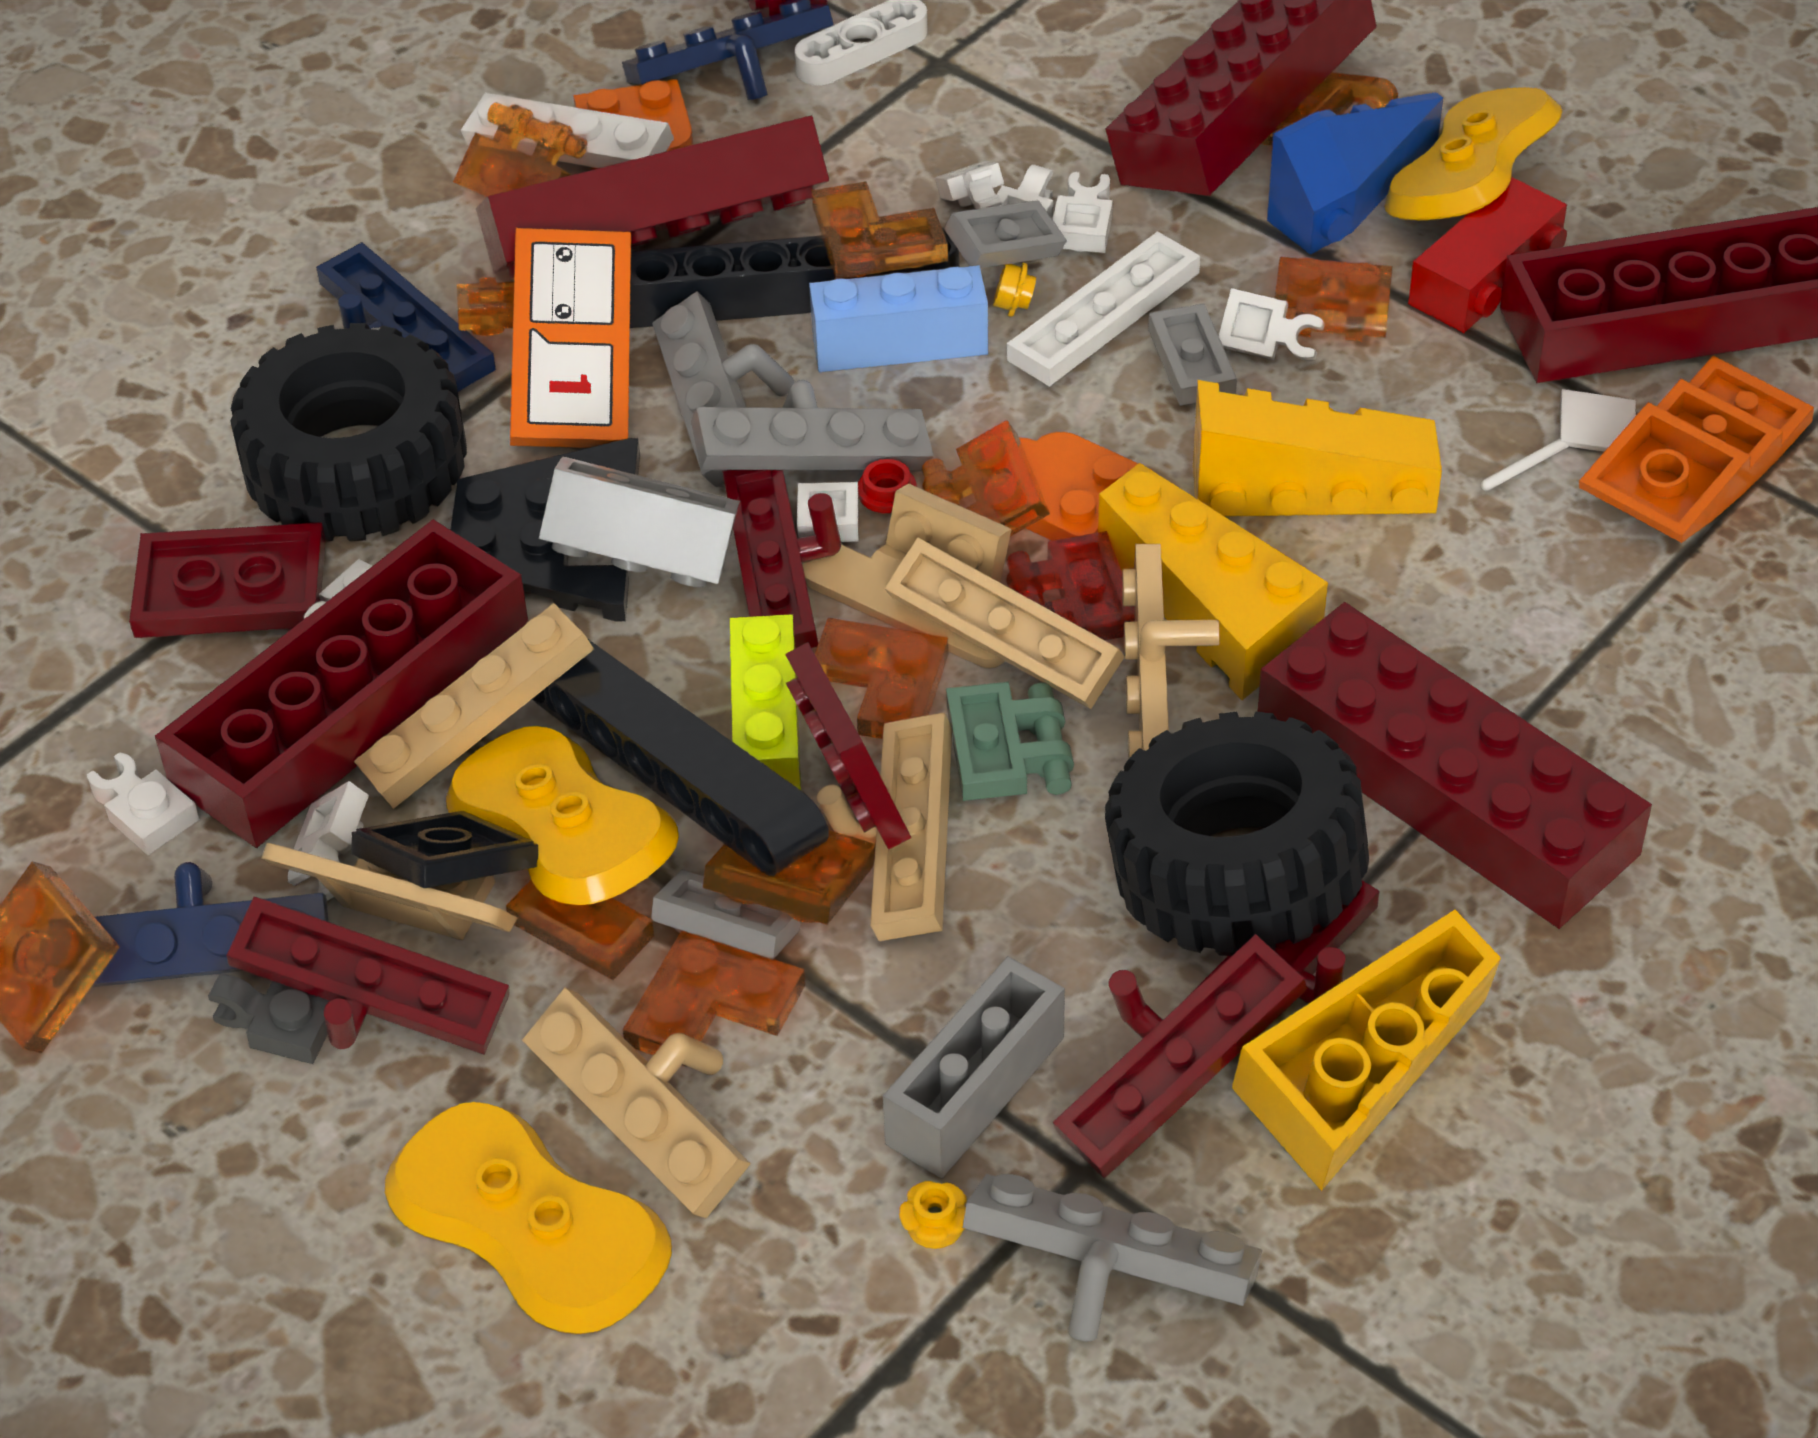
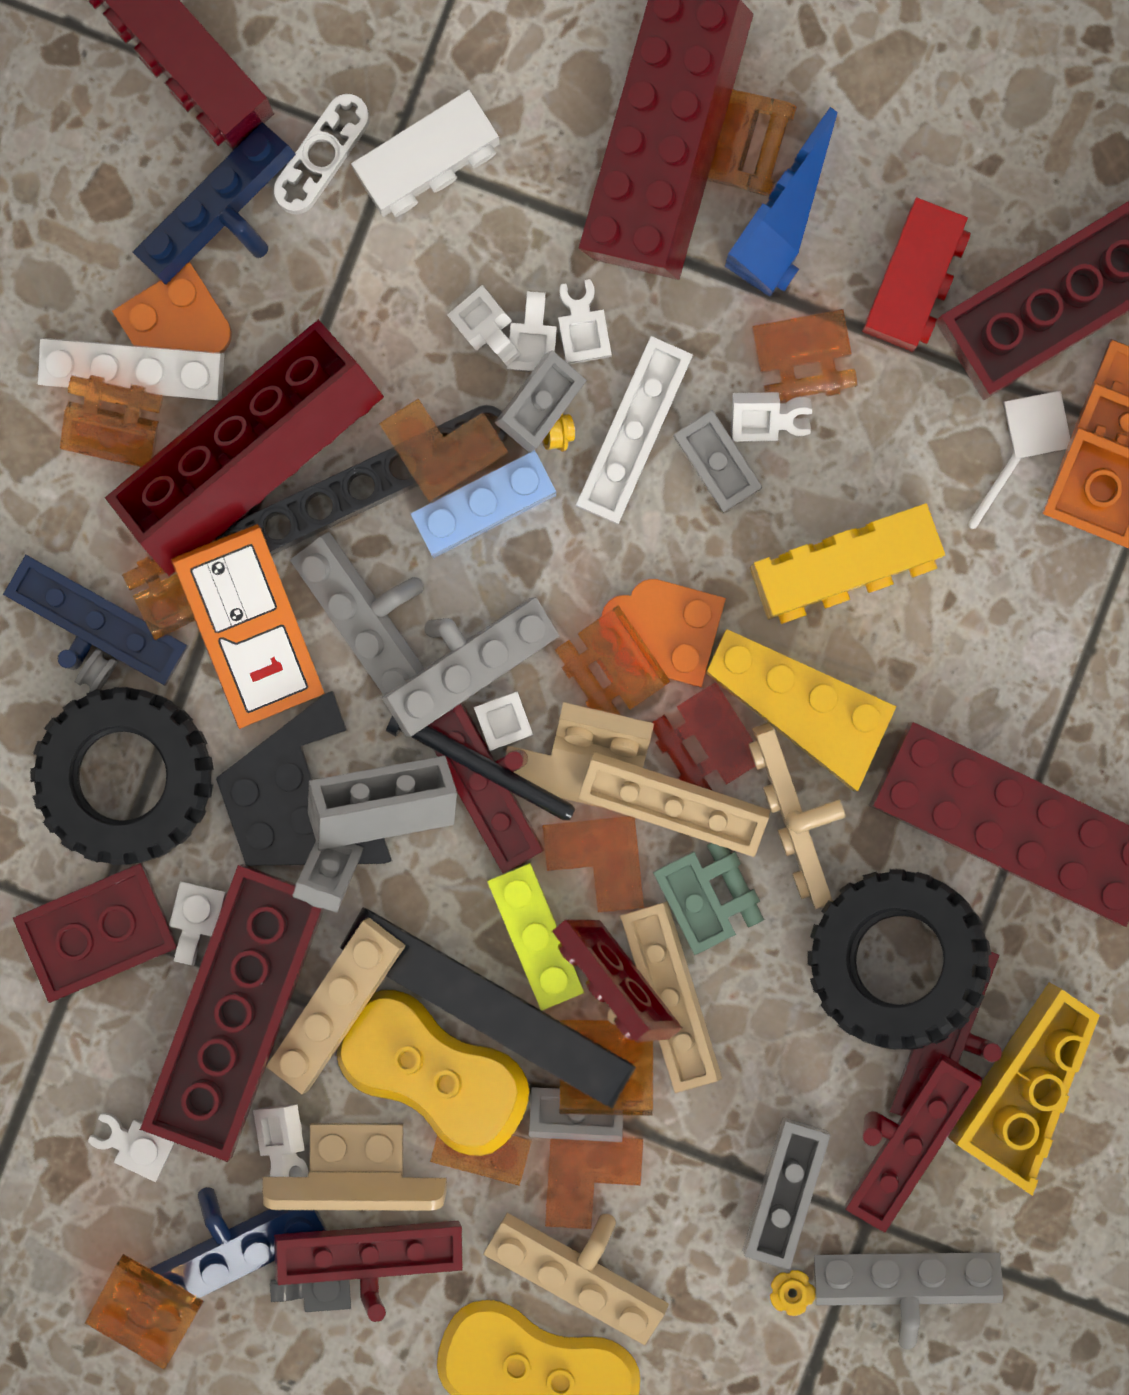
camera: 20 degrees left, 40 degrees up
(444, 849) = (377, 1147): black plate -> none
(535, 558) = (327, 876): none -> light grey plate
(779, 526) = (490, 770): none -> black bar
(880, 483) = (547, 688): red plate -> none
(972, 53) = (427, 155): none -> white brick
(1472, 154) = (872, 196): yellow plate -> none

